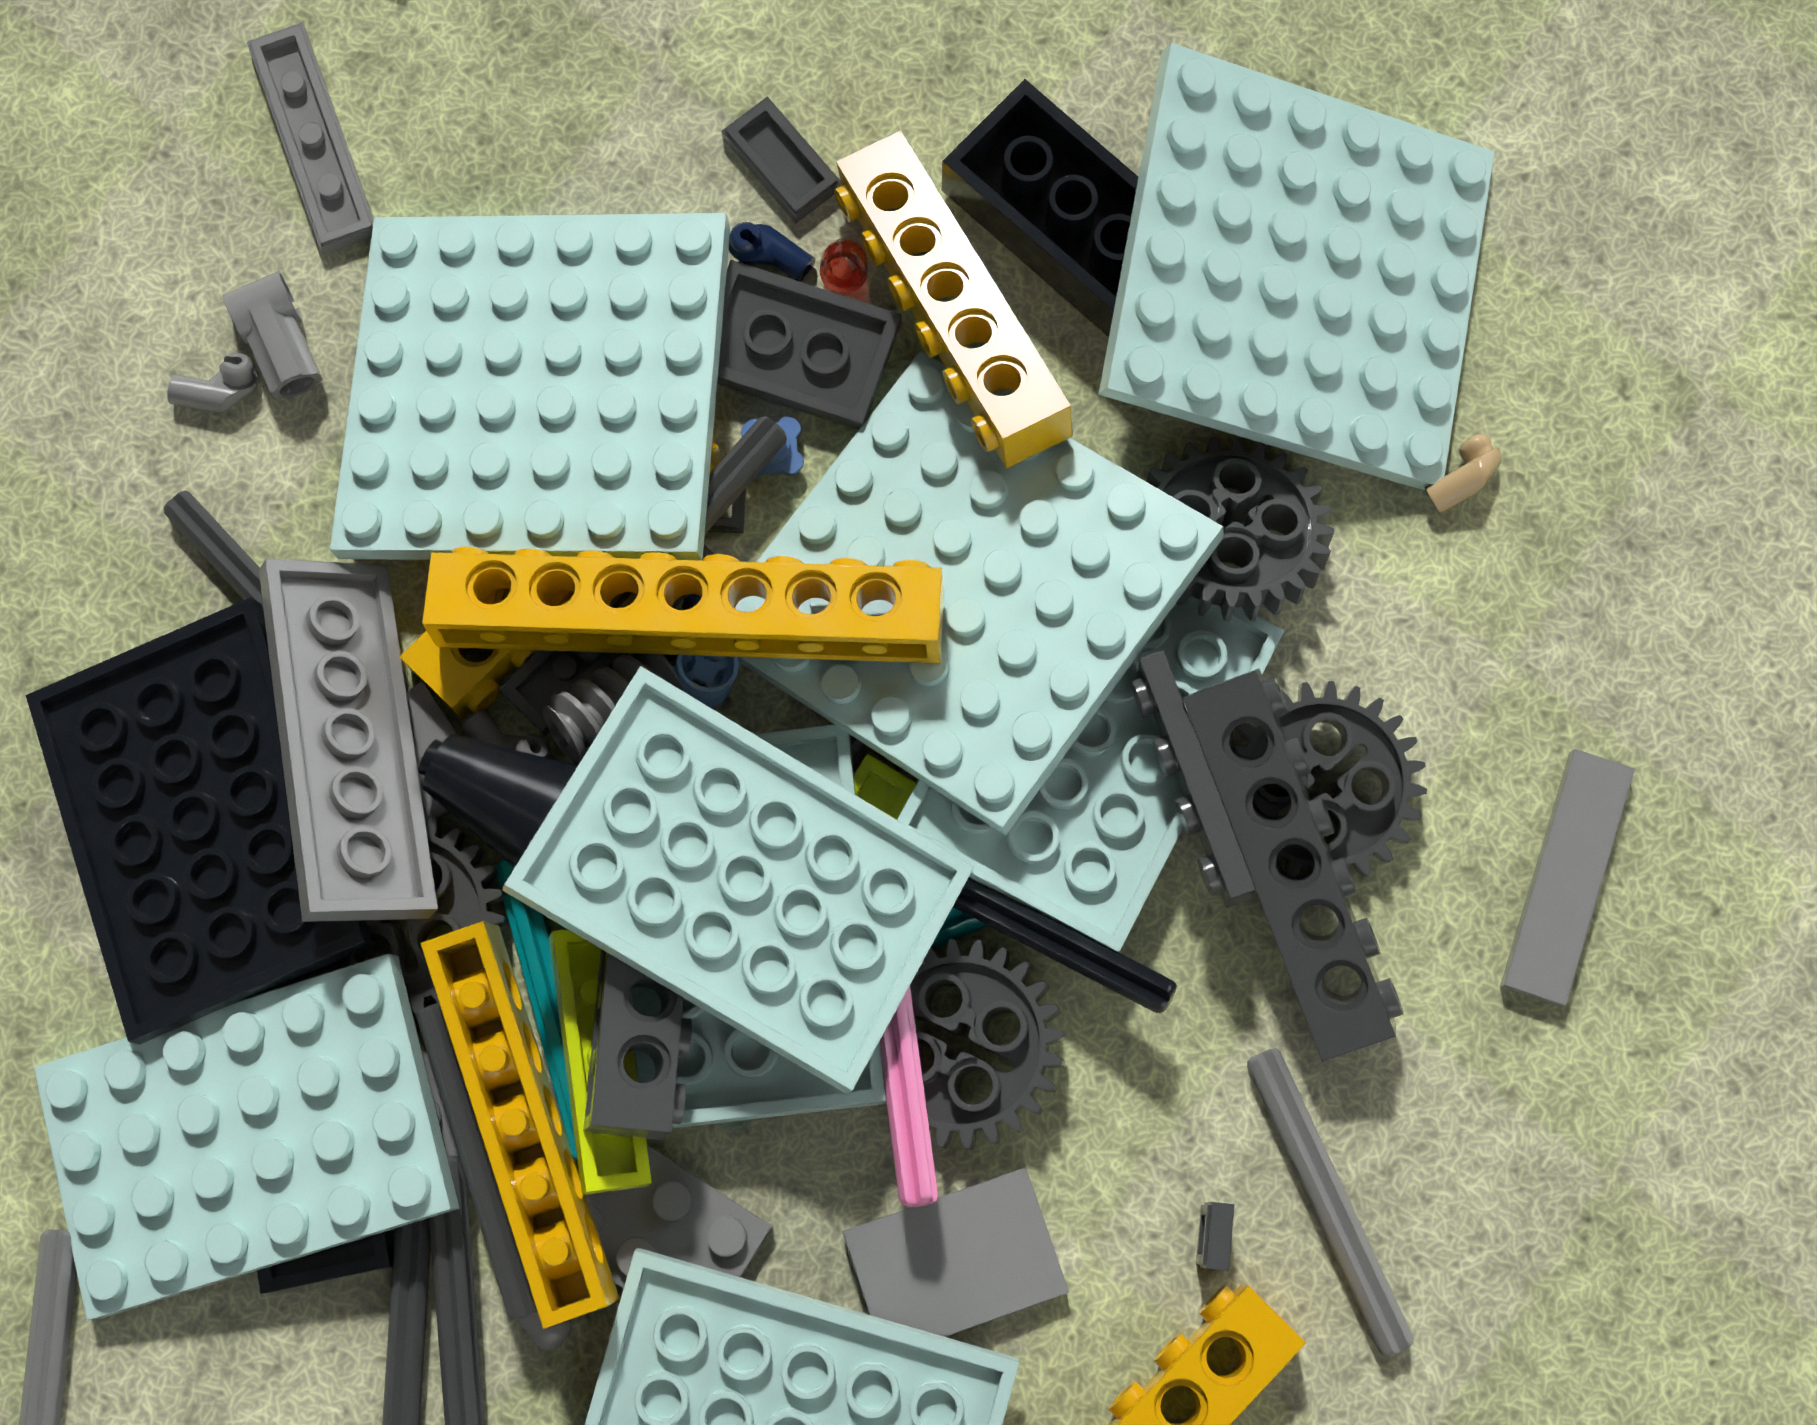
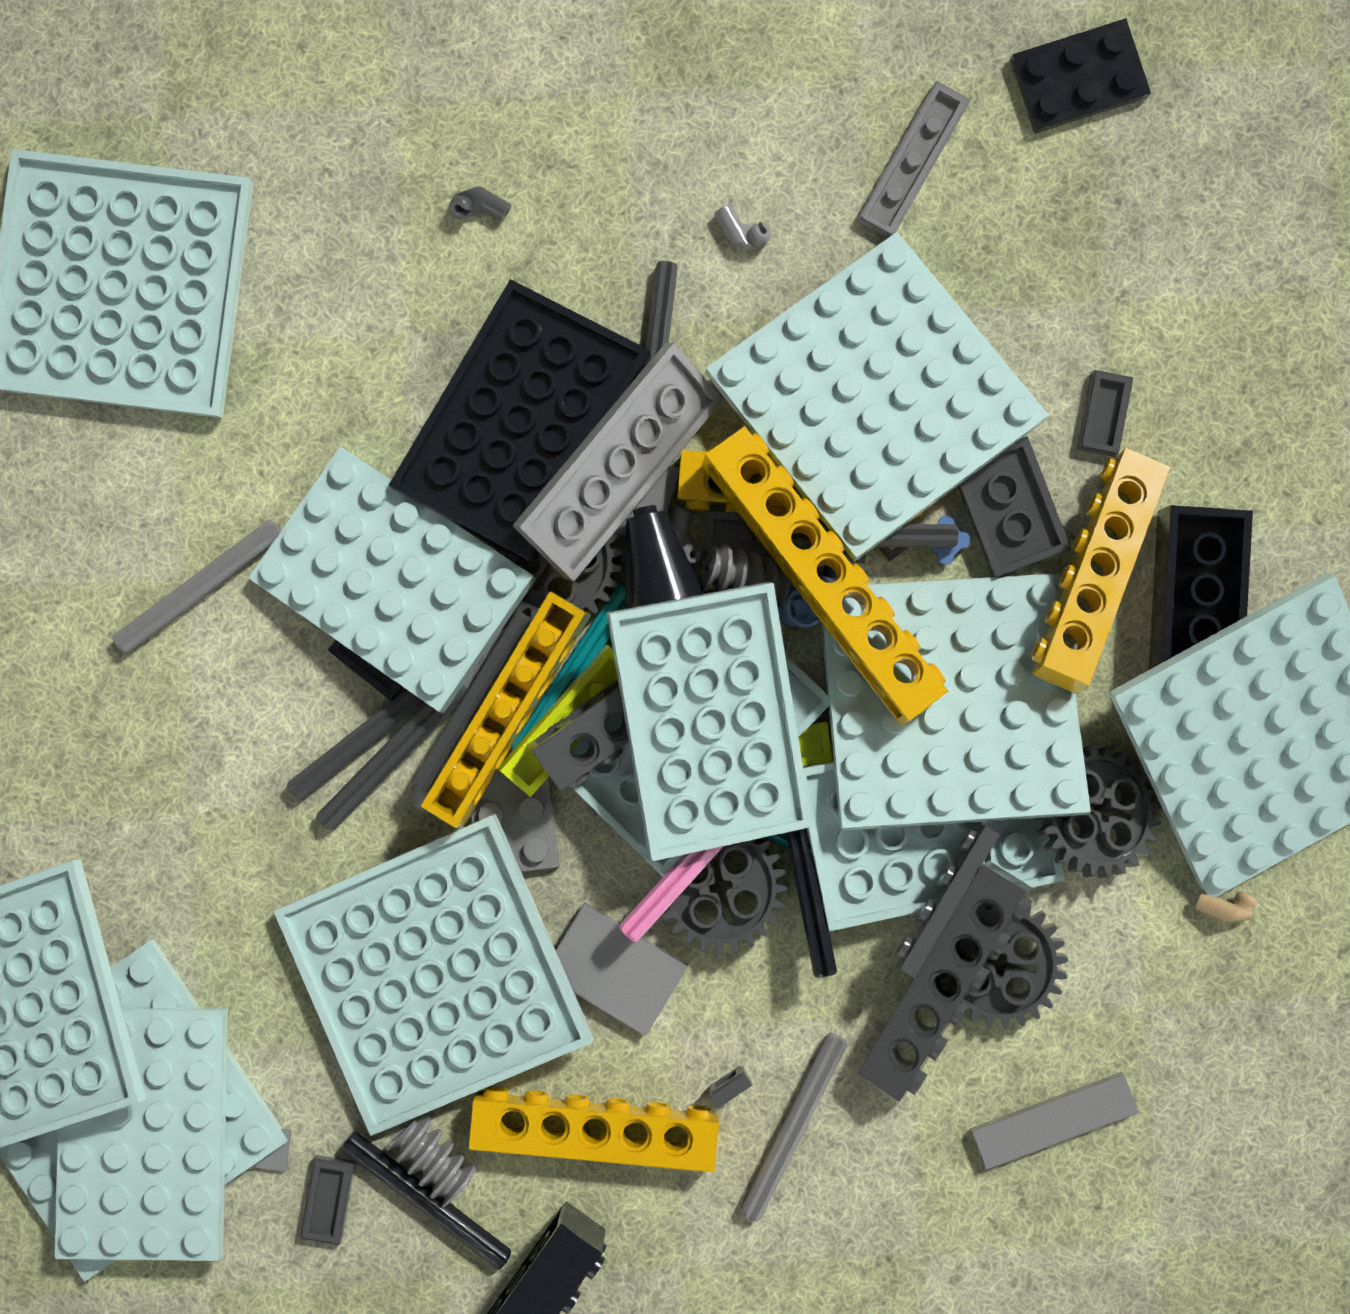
camera: 55 degrees right, 10 degrees up
(272, 329) = (795, 231): light grey piece -> none
(766, 246) = (1051, 447): dark blue arm -> none
(835, 269) = (1067, 494): clear red hinge -> none

